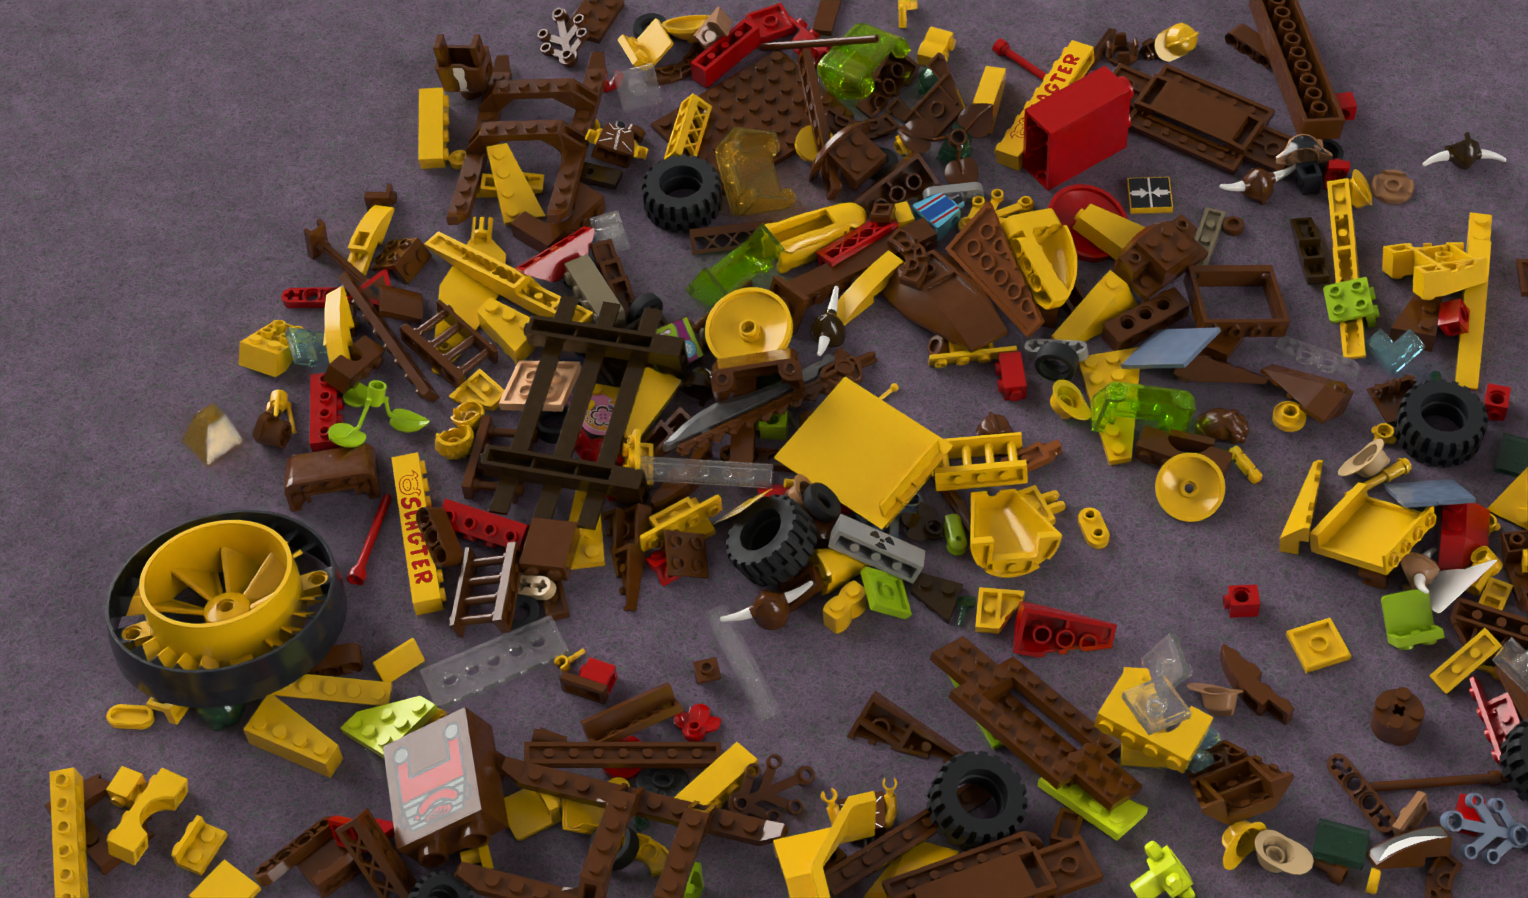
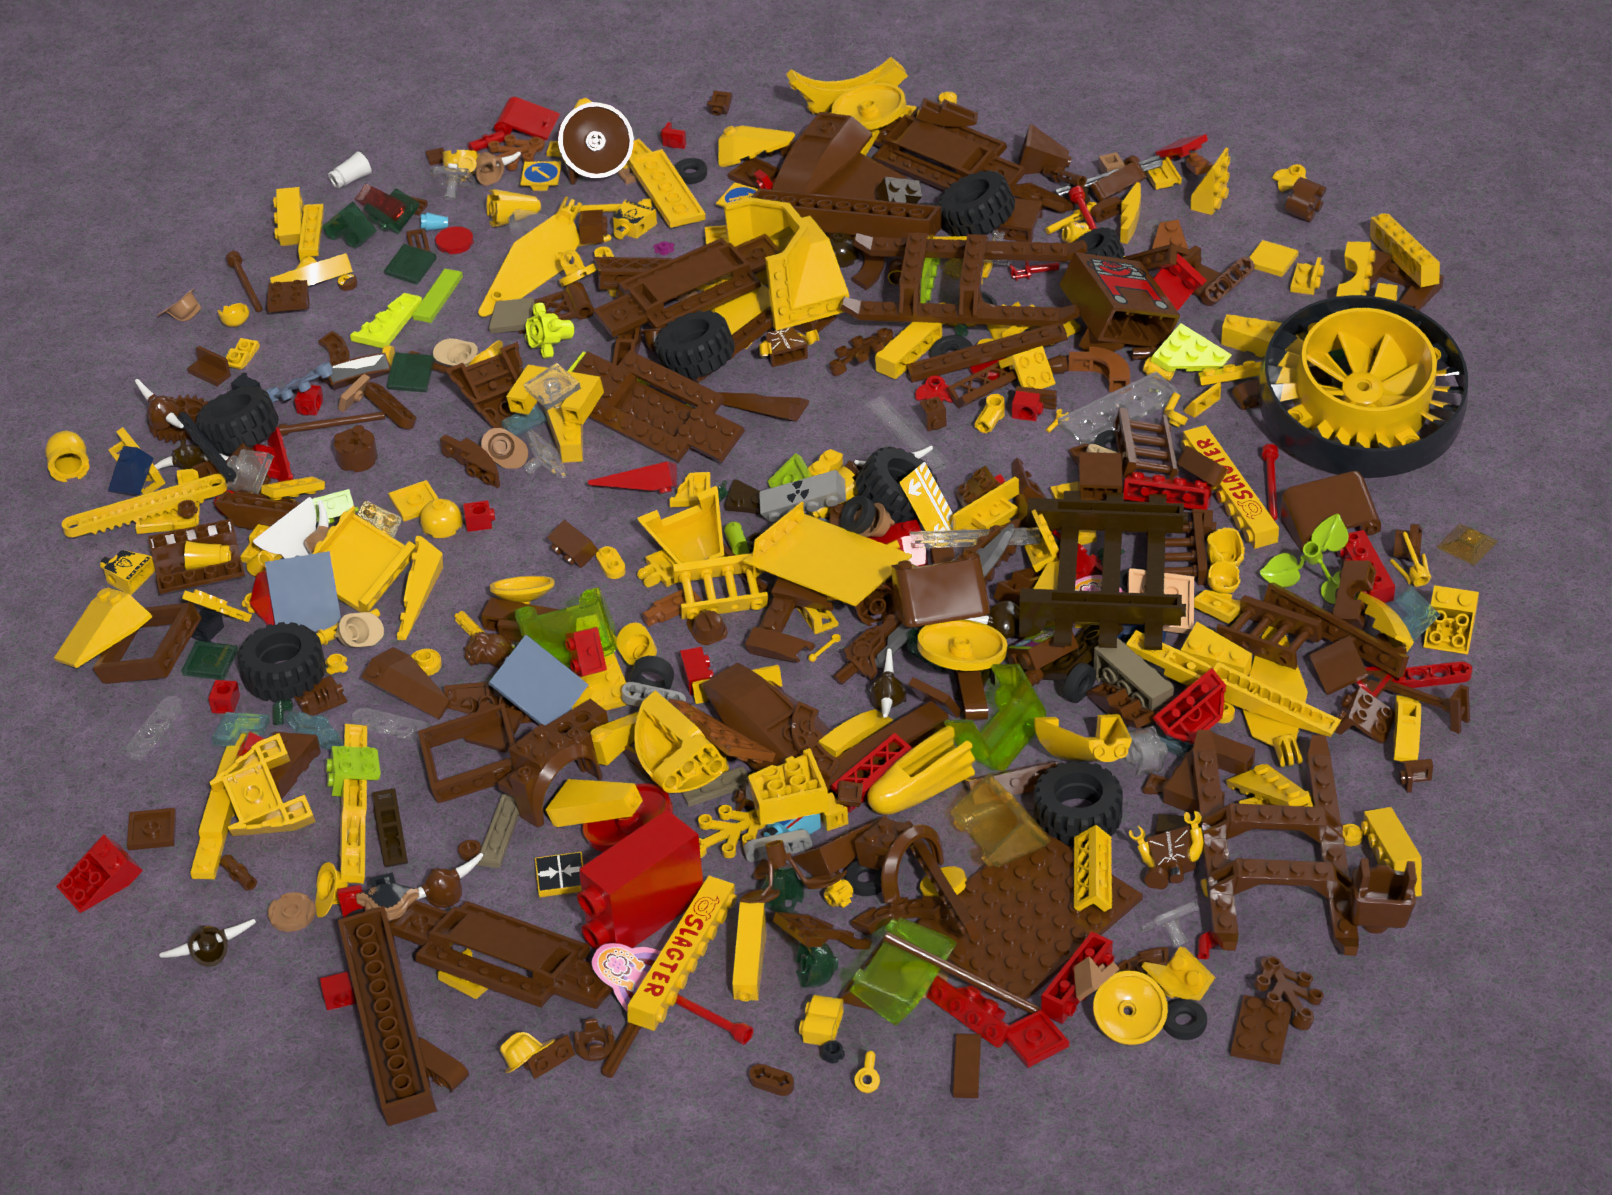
camera: 170 degrees right, 10 degrees down
(435, 638) = (1175, 417): none -> yellow plate
(457, 492) = (1208, 524): none -> reddish brown bracket
(483, 703) = (1103, 362): none -> dark orange arch
(584, 722) = (1031, 368): none -> yellow bracket
(637, 674) = (991, 413): none -> yellow piece
(655, 220) = (1109, 745): none -> yellow cone
(929, 23) = (832, 1046): none -> black plate
(935, 395) = (768, 638): none -> reddish brown wedge
(936, 202) = (789, 790): none -> yellow wedge
(981, 14) = (771, 1080): none -> reddish brown beam
(1124, 375) = (585, 652): none -> red bracket
(1135, 542) = (572, 544): none -> reddish brown brick
(1285, 607) = (441, 518): none -> yellow cylinder
(1359, 600) = (380, 518): none -> clear yellow plate
(1447, 222) = (238, 872): none -> reddish brown pin
(1473, 359) = (235, 724): none -> clear light blue plate

